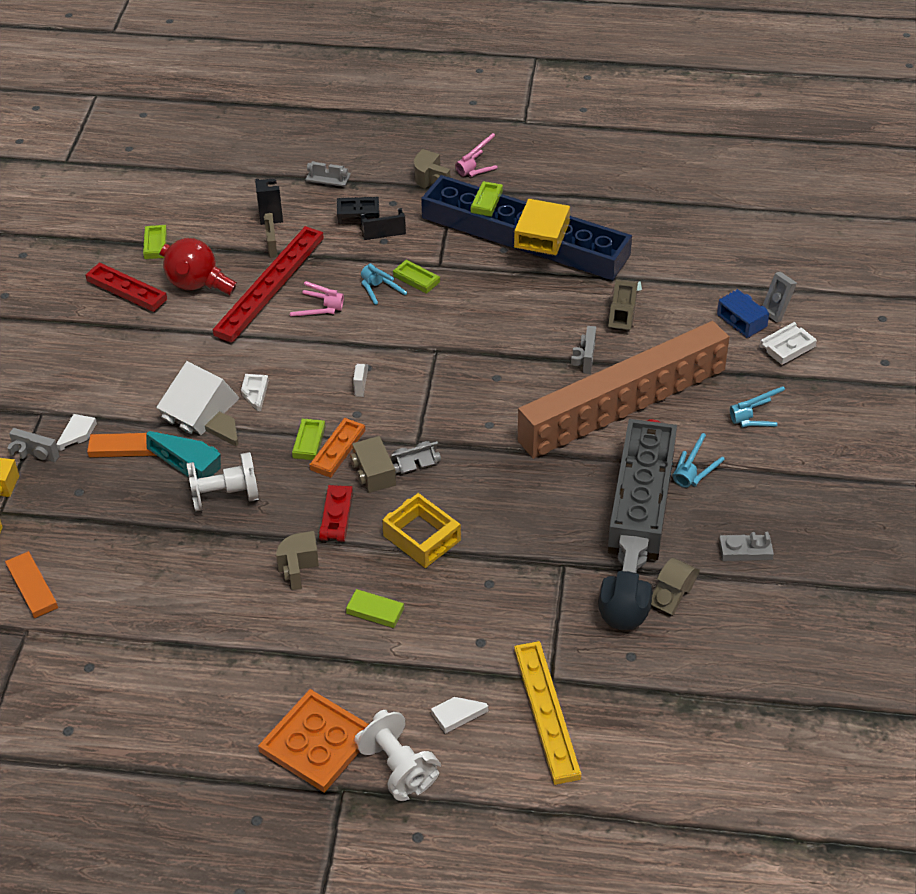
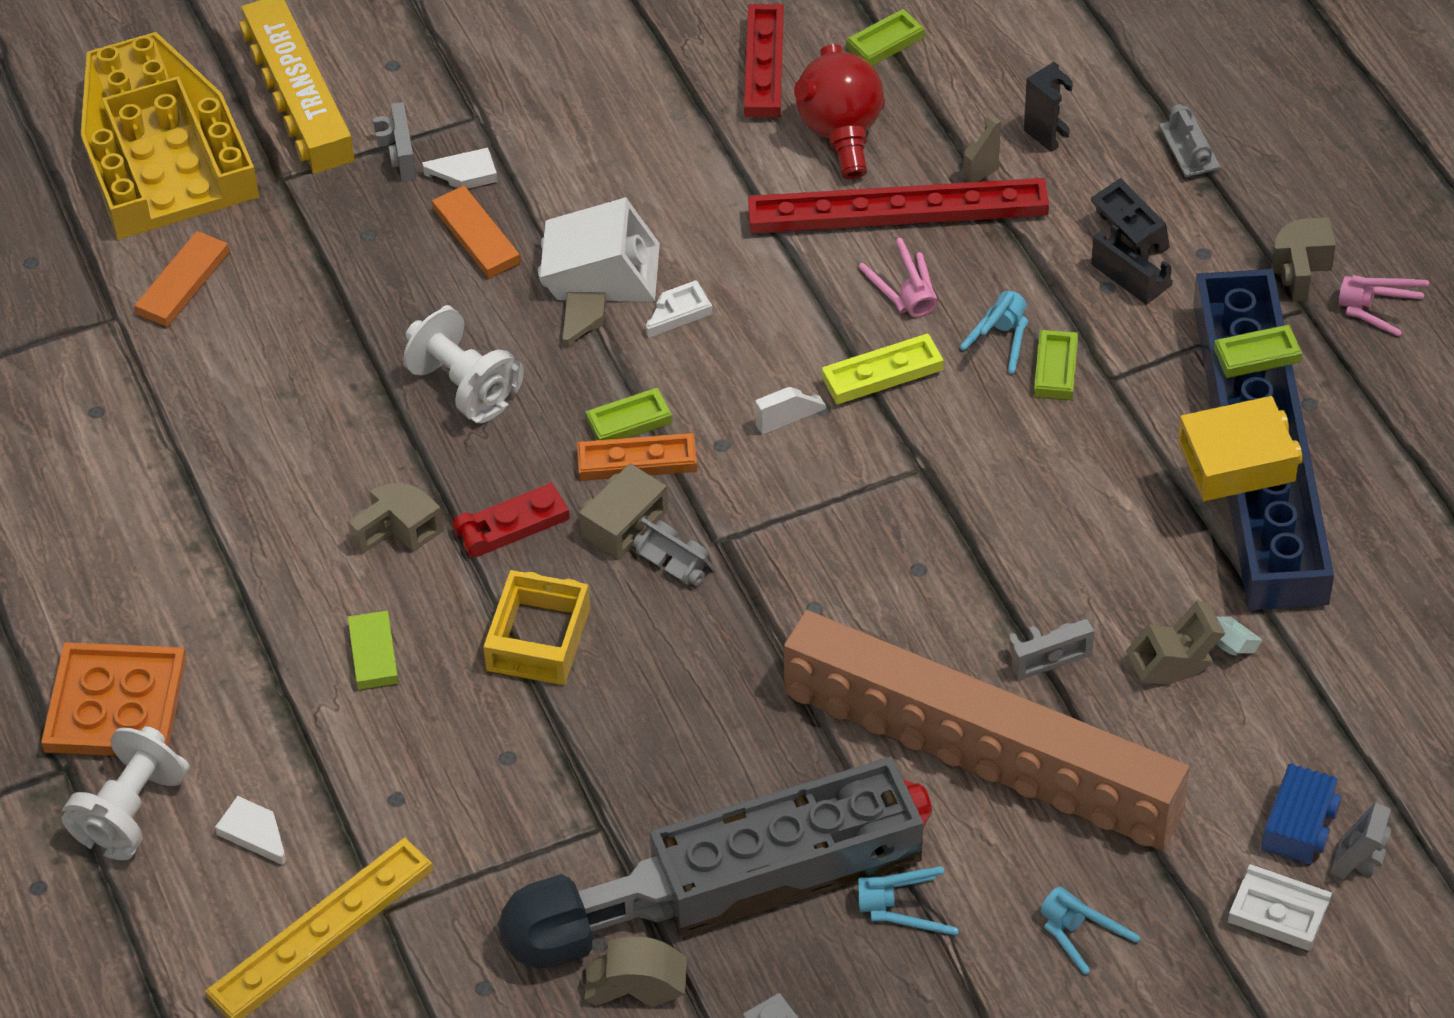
camera: 60 degrees right, 5 degrees up
(180, 451) = (489, 308): teal slope -> none
(367, 333) = (882, 368): none -> neon yellow plate

